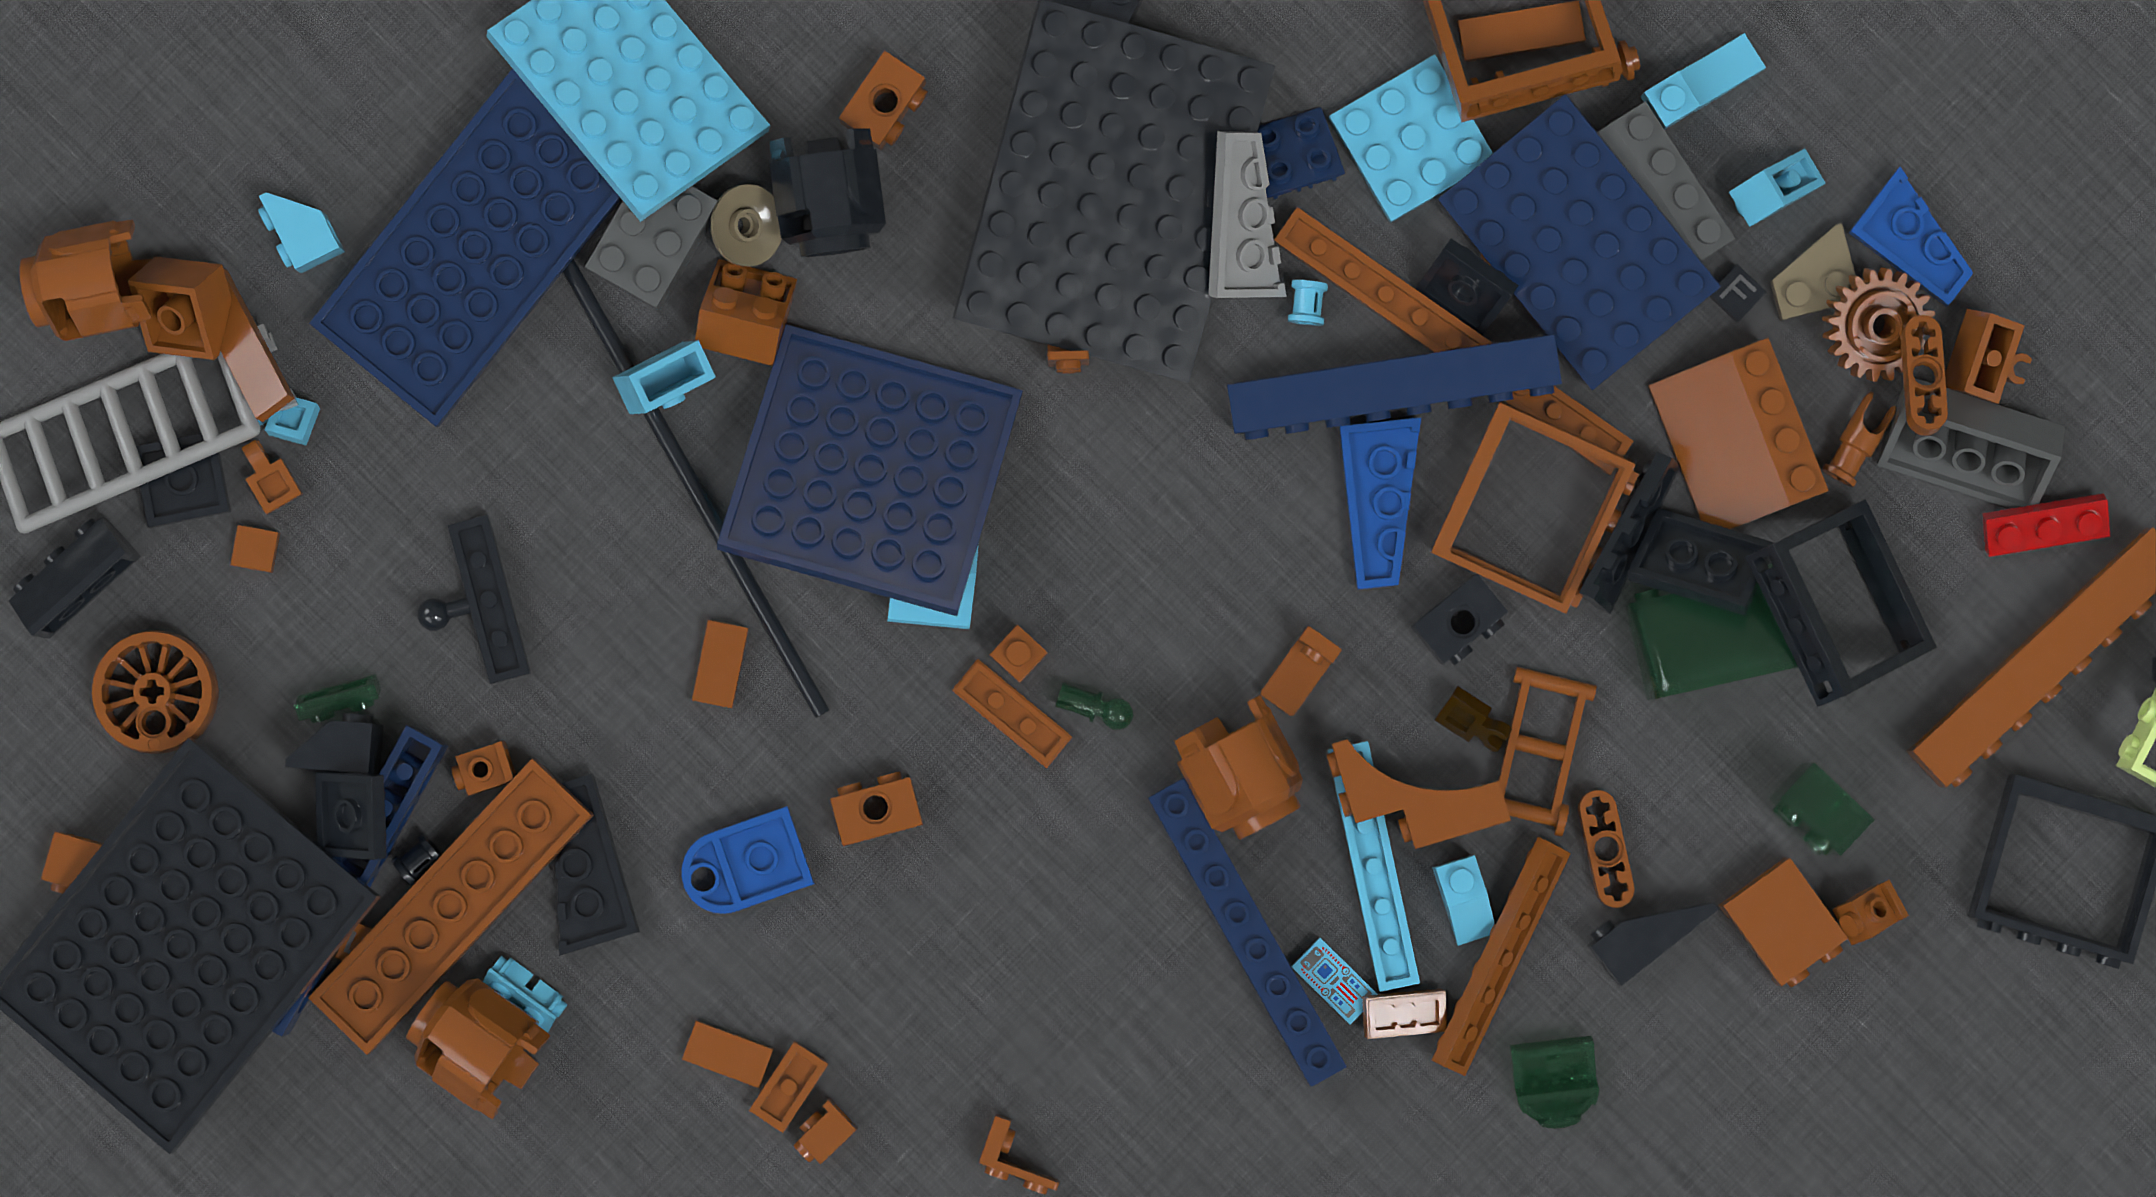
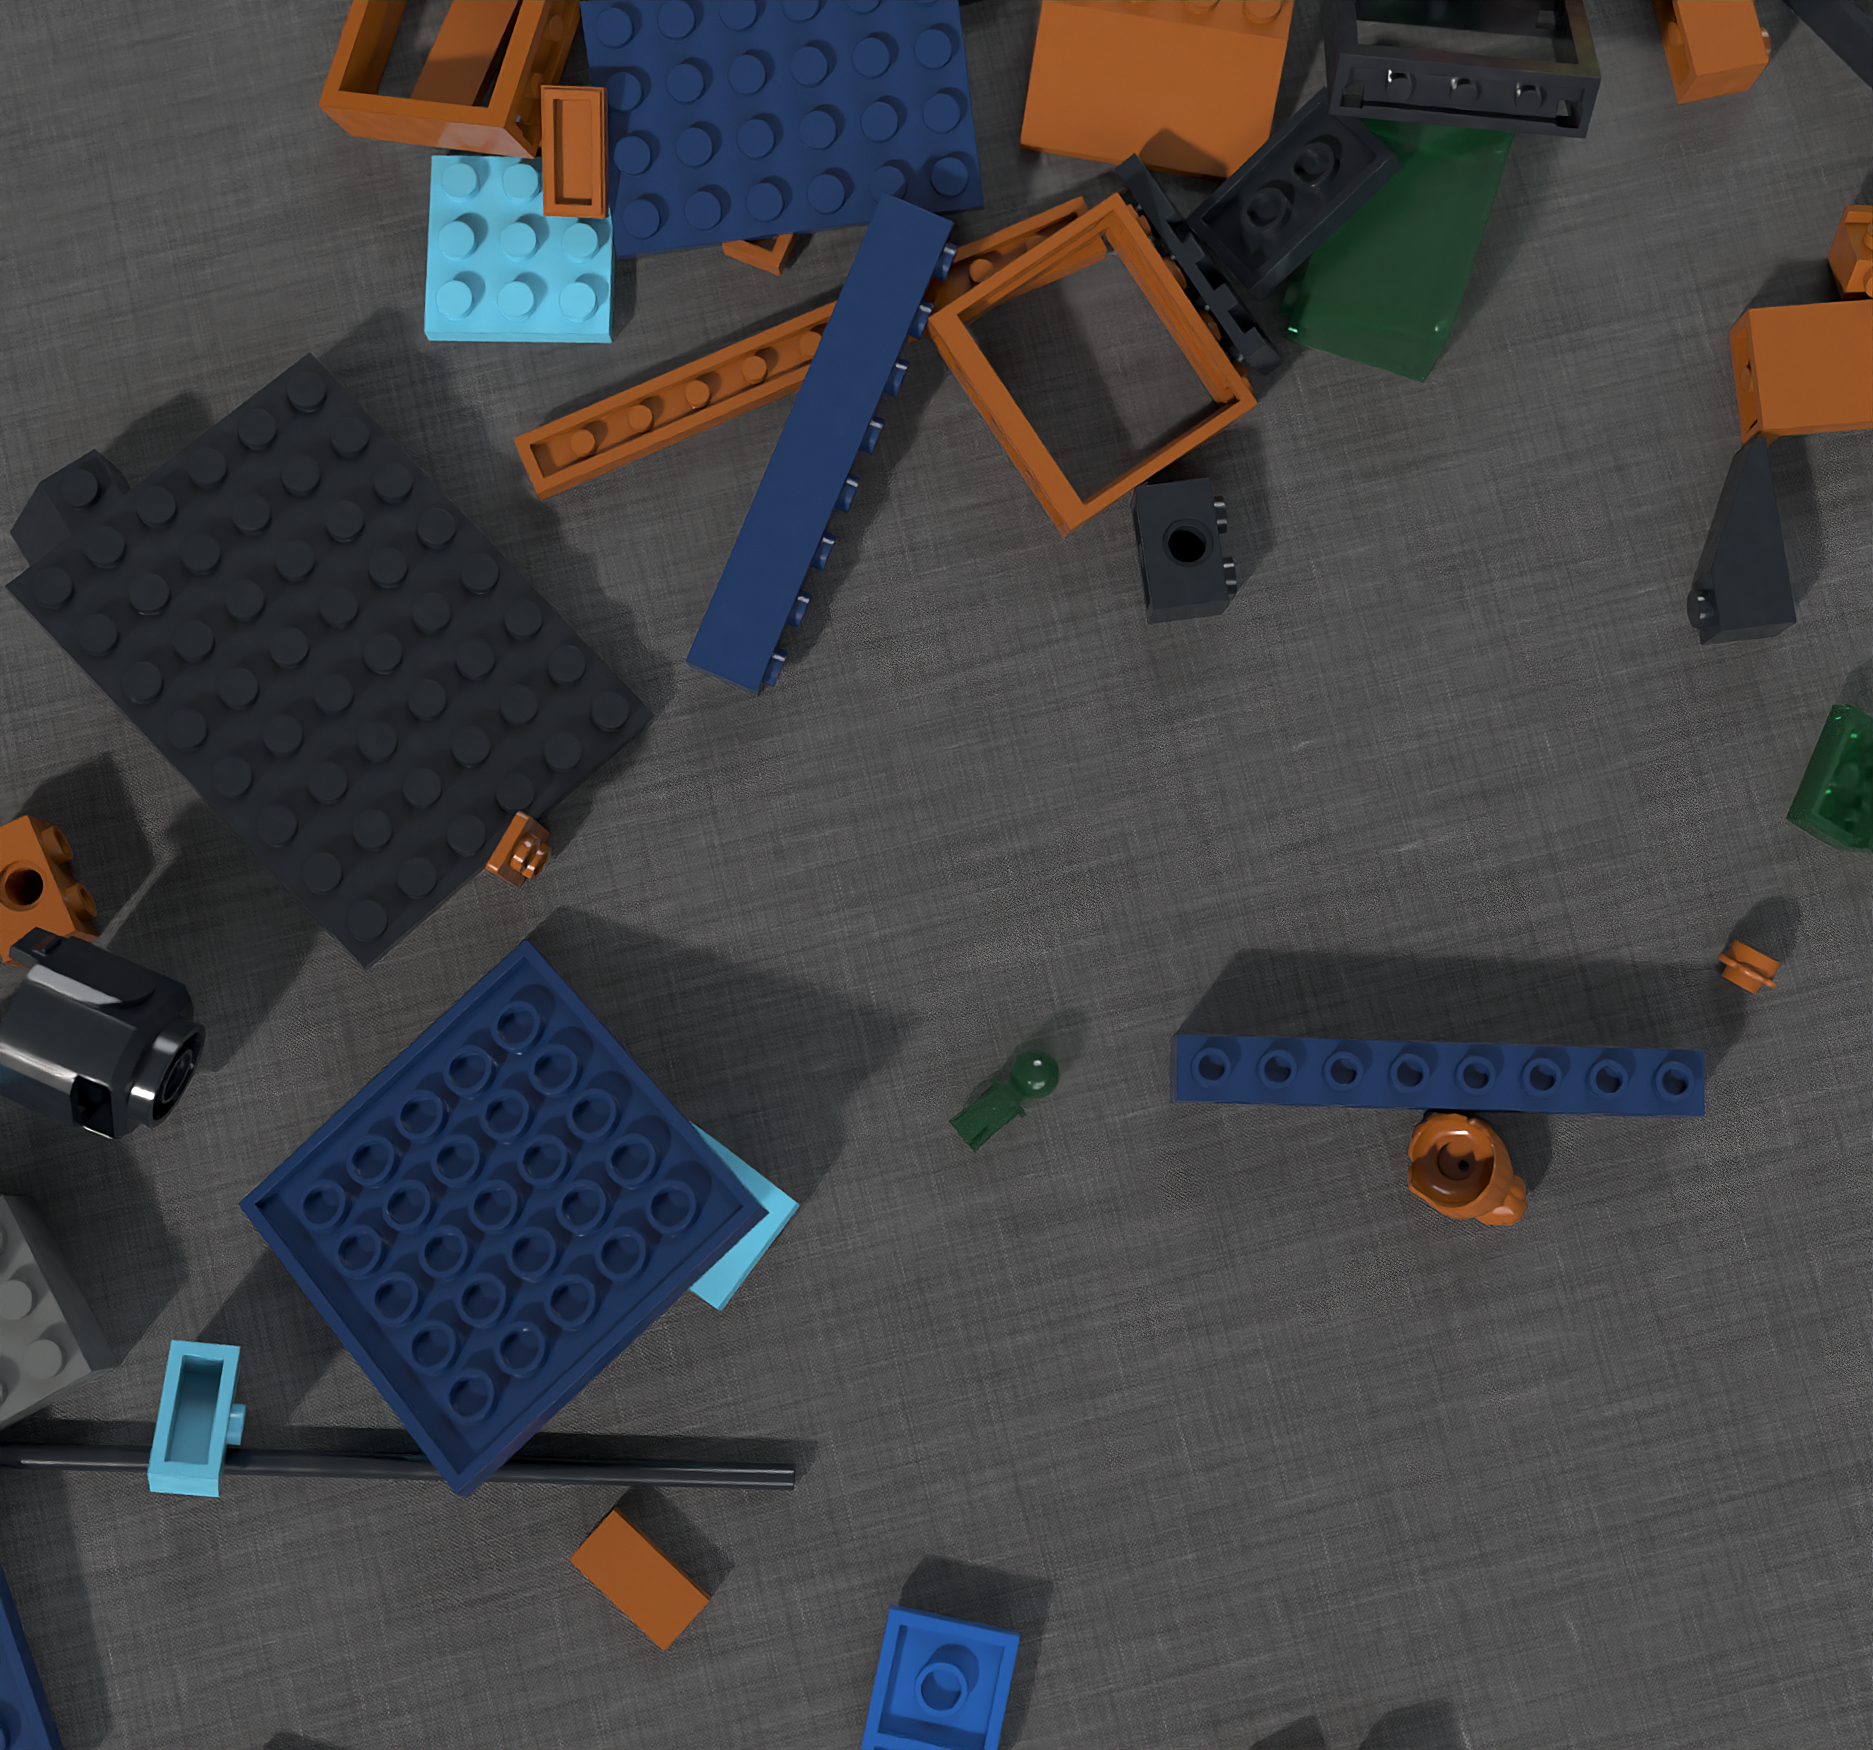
camera: 55 degrees left, 5 degrees down
(745, 312) = (184, 1251): dark orange slope -> none
(760, 225) = (56, 1152): dark tan dish -> none
(901, 814) = (973, 1525): dark orange brick -> none
(1000, 1140) = (1567, 1610): dark orange bracket -> none
(1012, 713) = (948, 1216): dark orange tile -> none
(1018, 654) = (874, 1158): dark orange brick -> none
(1201, 997) = (1482, 1192): none -> dark orange piece
(1242, 236) = (506, 529): light grey wing -> none
(1242, 775) = (1219, 952): dark orange piece -> none
(1299, 152) = (446, 403): dark blue hinge -> none
(1300, 671) = (1122, 794): dark orange bracket -> none
(1307, 302) = (646, 500): medium azure bush -> none
(1333, 980) = (1563, 999): medium azure tile -> none
(1378, 491) = (939, 552): blue wing -> none
(1379, 894) = (1442, 856): medium azure plate -> none
(1404, 1013) = (1663, 932): plate -> none
(1414, 1072) = (1748, 967): none -> dark orange plate
(1429, 813) = (1421, 737): dark orange arch -> none
(1465, 899) = (1551, 760): medium azure slope -> none
(1467, 286) = (750, 277): black plate -> none
(1469, 717) = (1316, 612): dark brown plate -> none
(1479, 143) = (575, 151): none -> dark orange tile
(1501, 956) = (1671, 778): dark orange plate -> none
(1559, 812) = (1441, 646): dark orange piece -> none
(1608, 816) = (1629, 572): dark orange beam -> none
(1820, 810) = (1708, 232): clear green brick -> none

